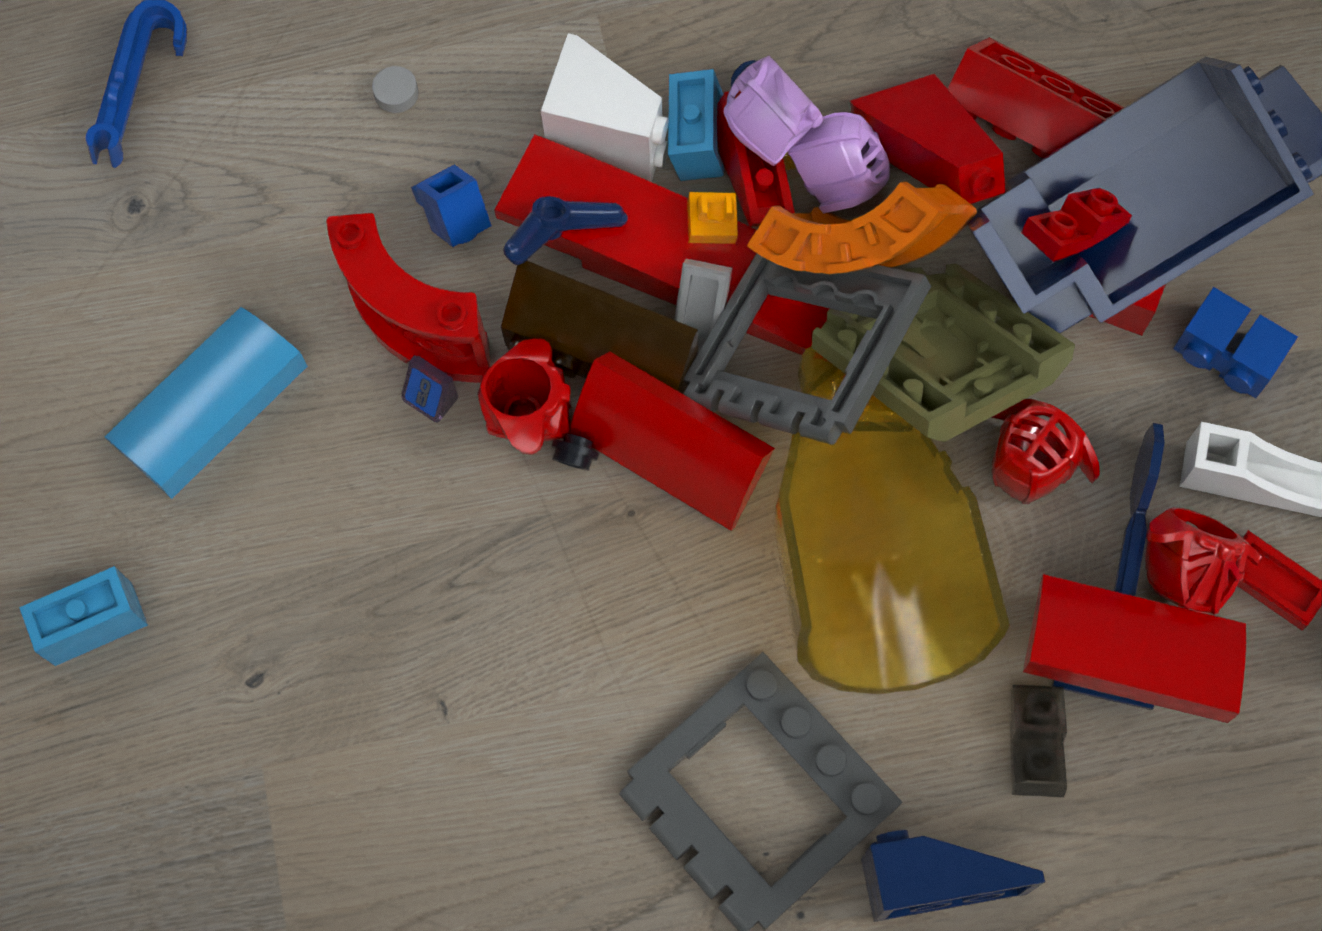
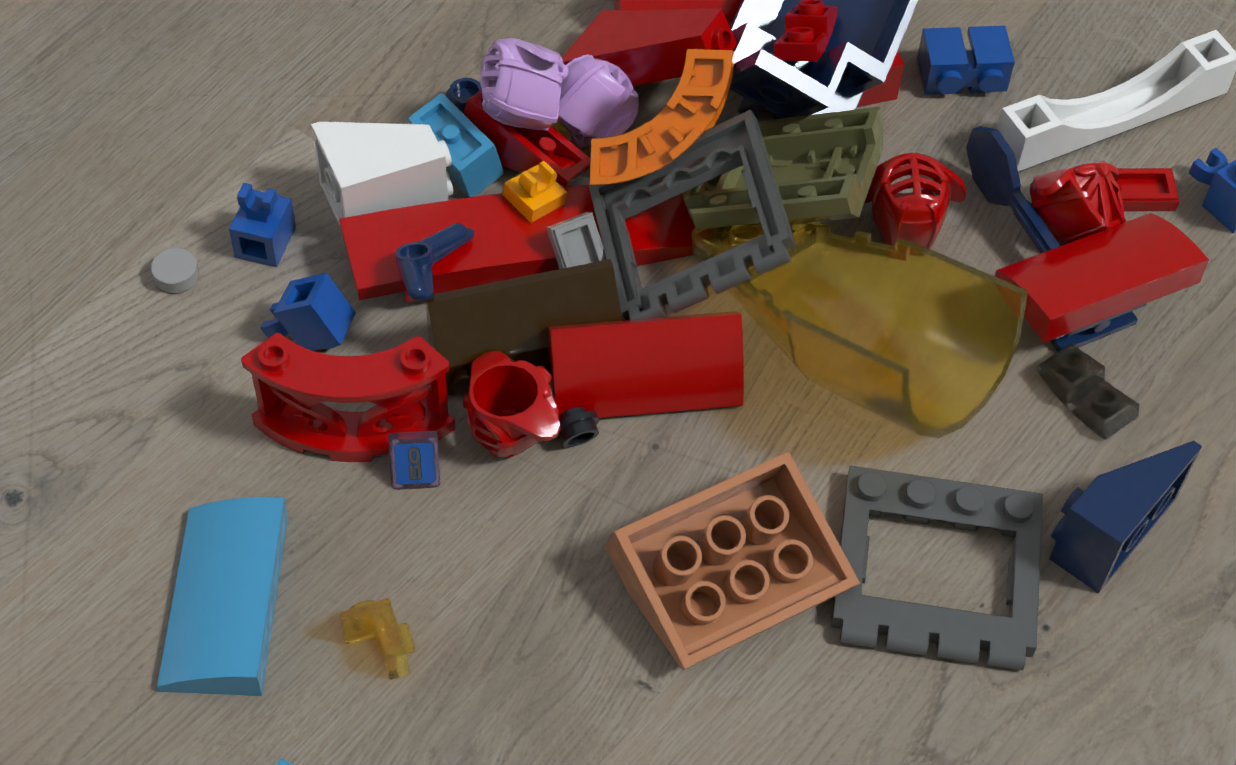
camera: 45 degrees left, 15 degrees down
(285, 522) = (378, 620): none -> clear yellow bracket
(485, 94) = (262, 226): none -> blue brick
(582, 666) = (731, 561): none -> nougat slope

